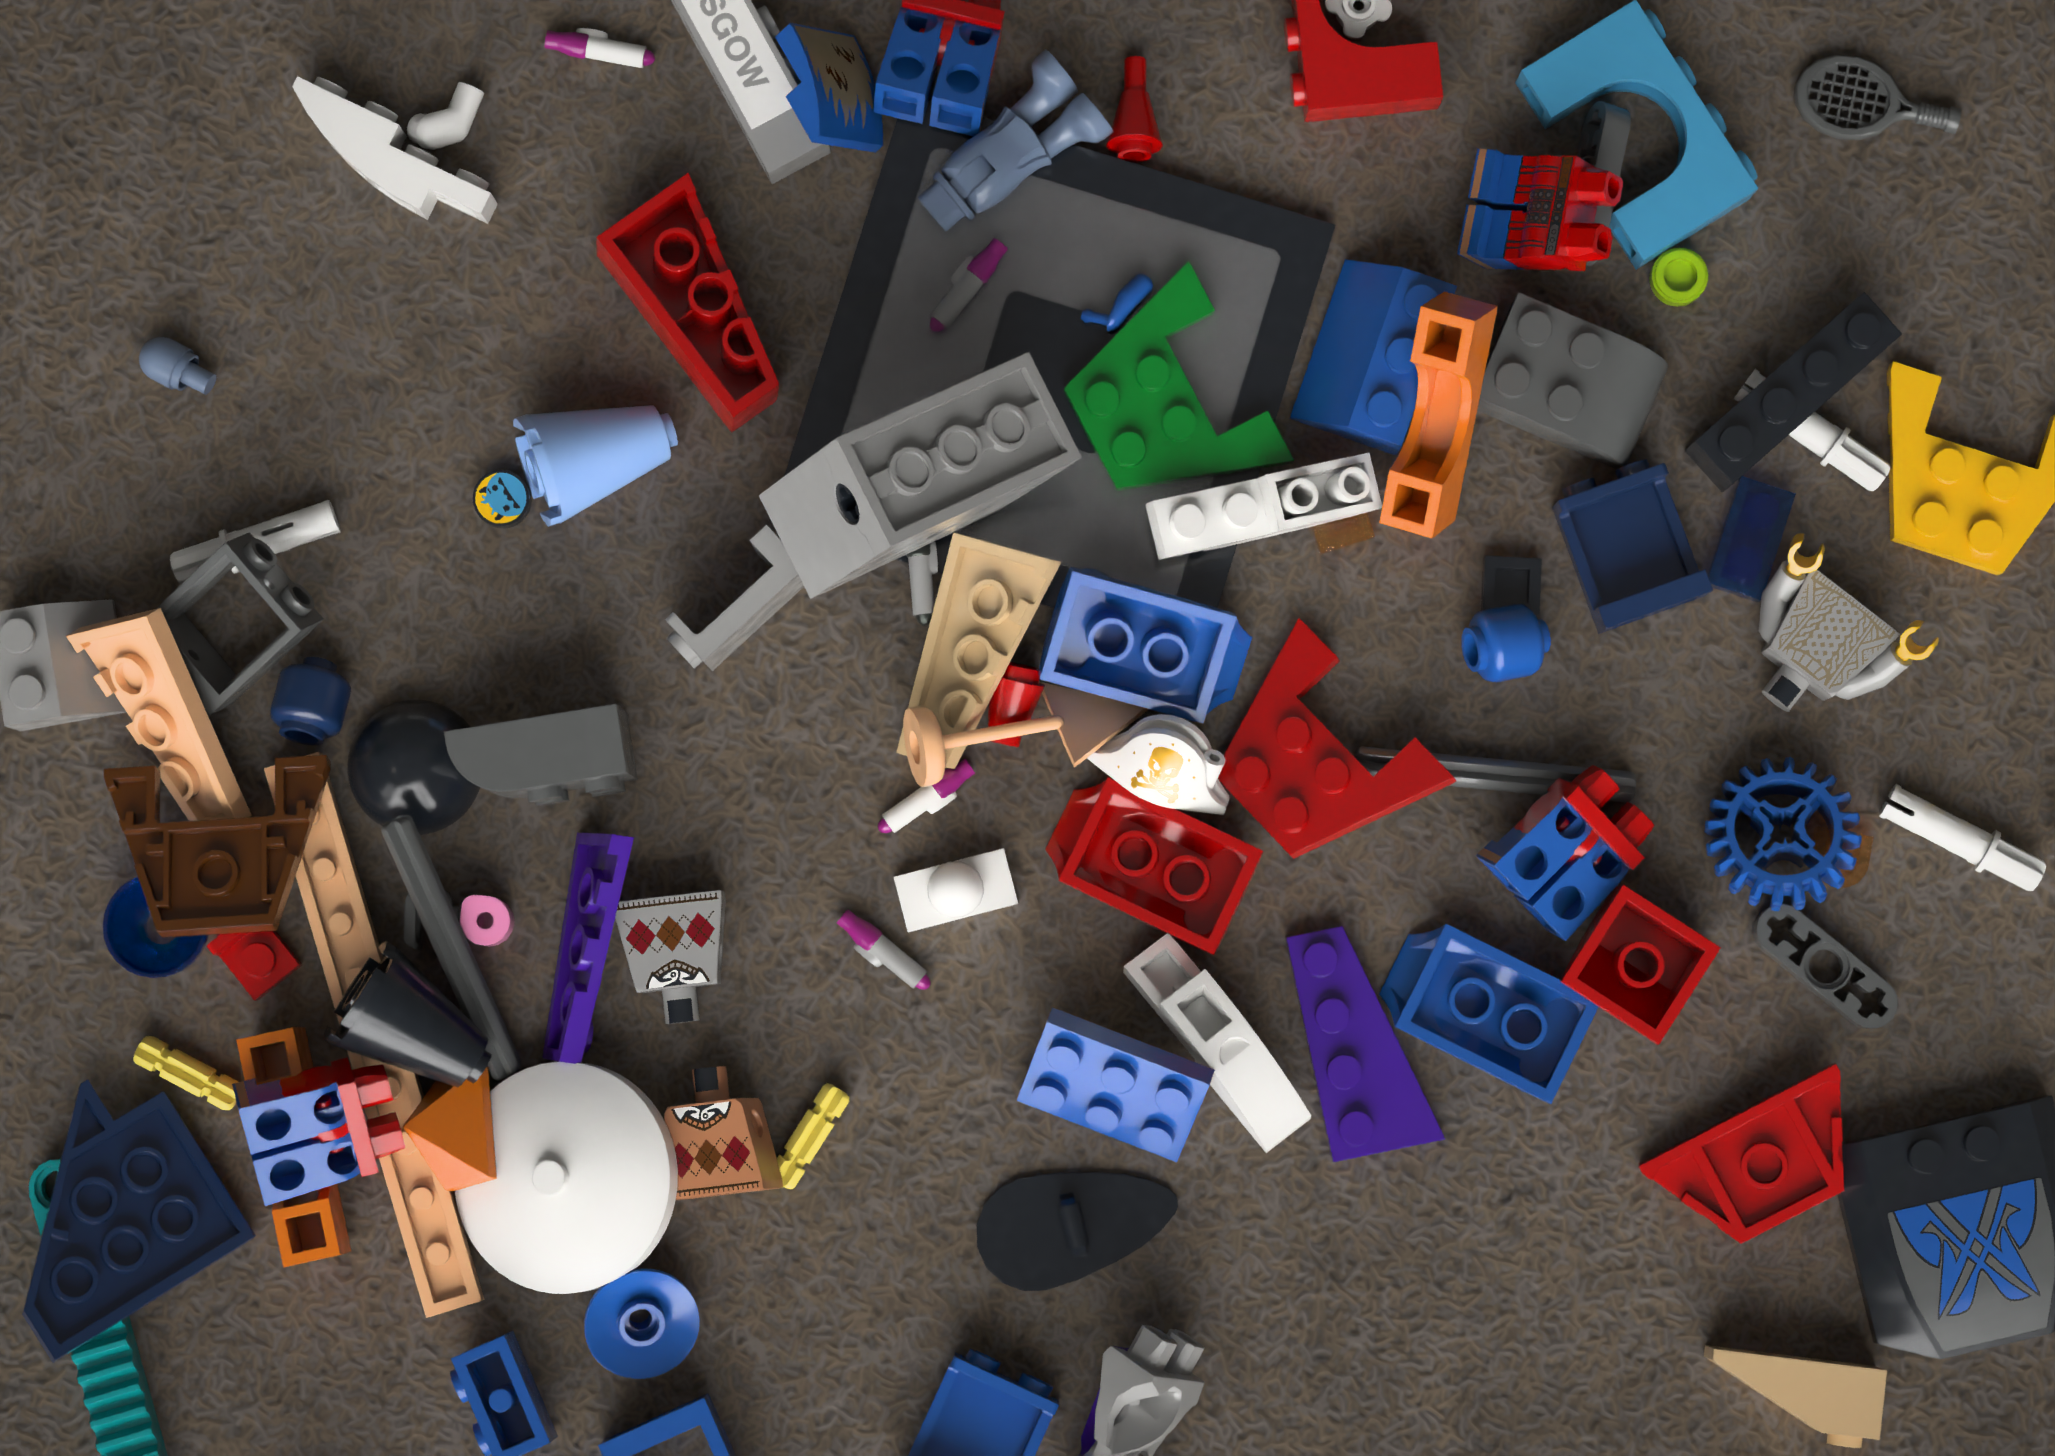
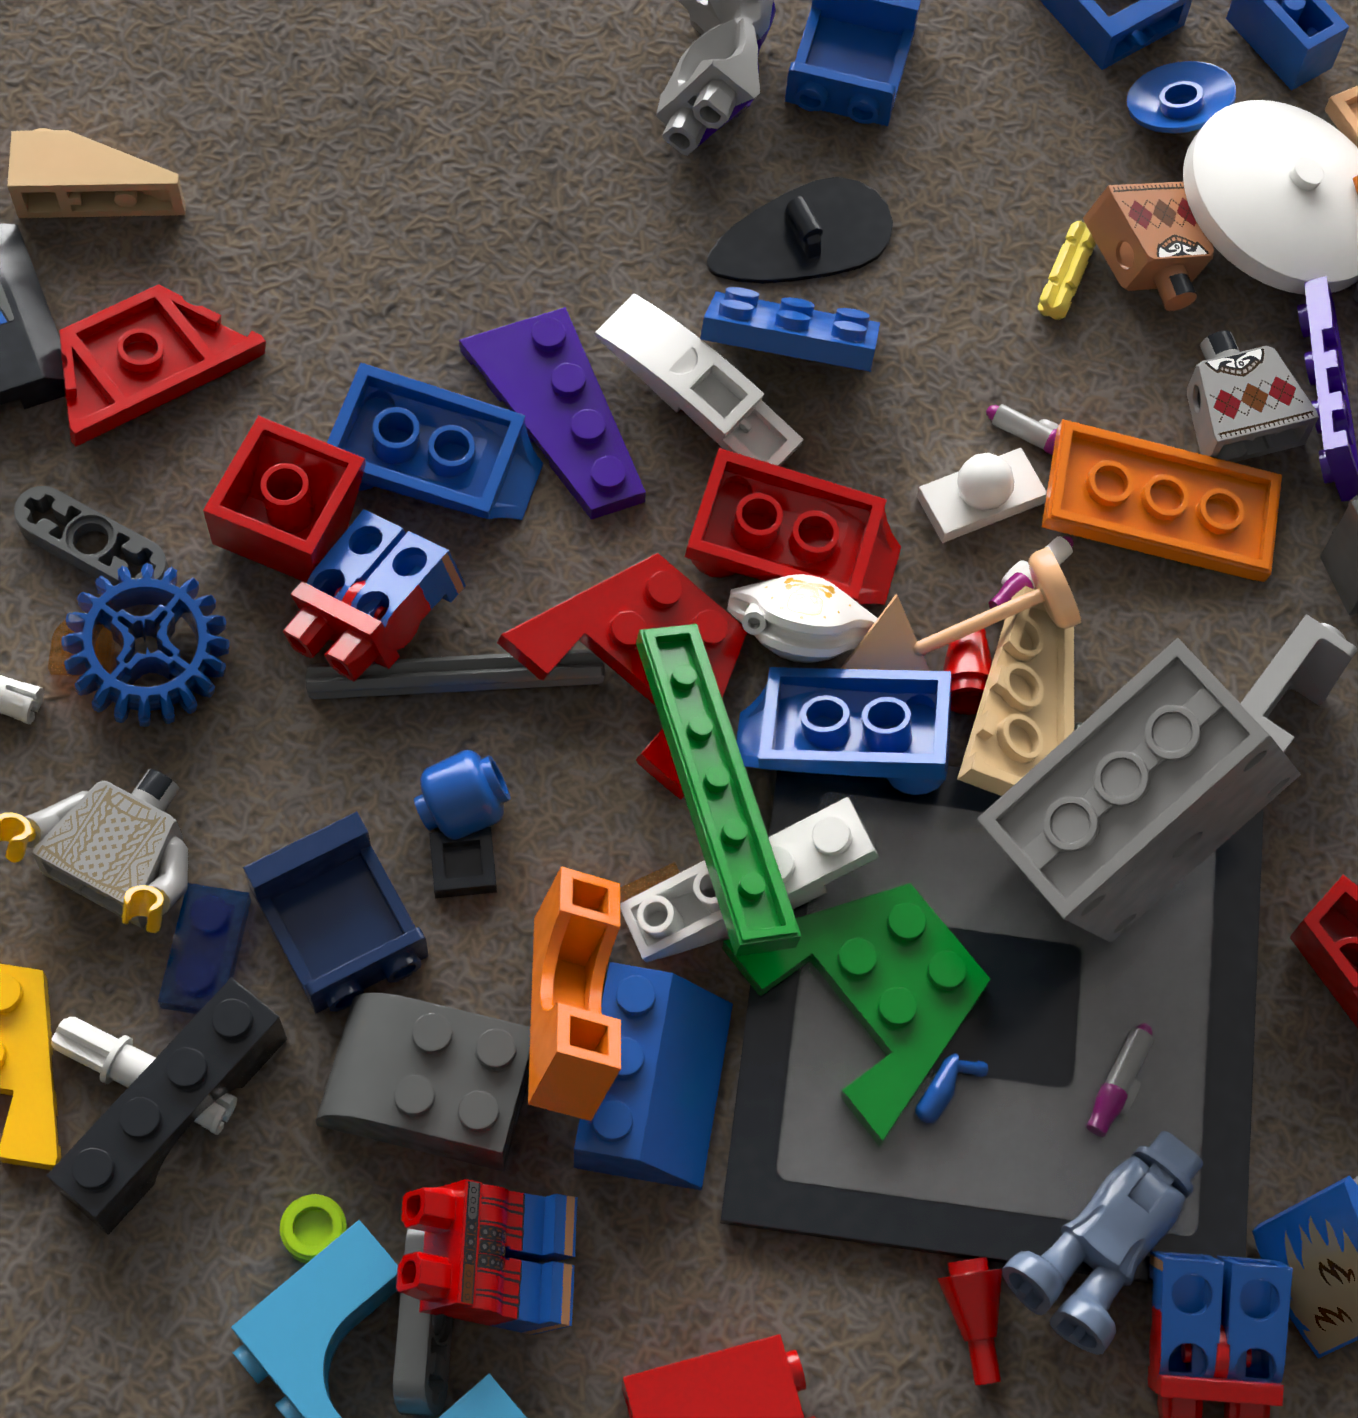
camera: 165 degrees right, 20 degrees down
(782, 851) = (1162, 501): none -> orange tile
(1282, 590) = (717, 791): none -> green tile

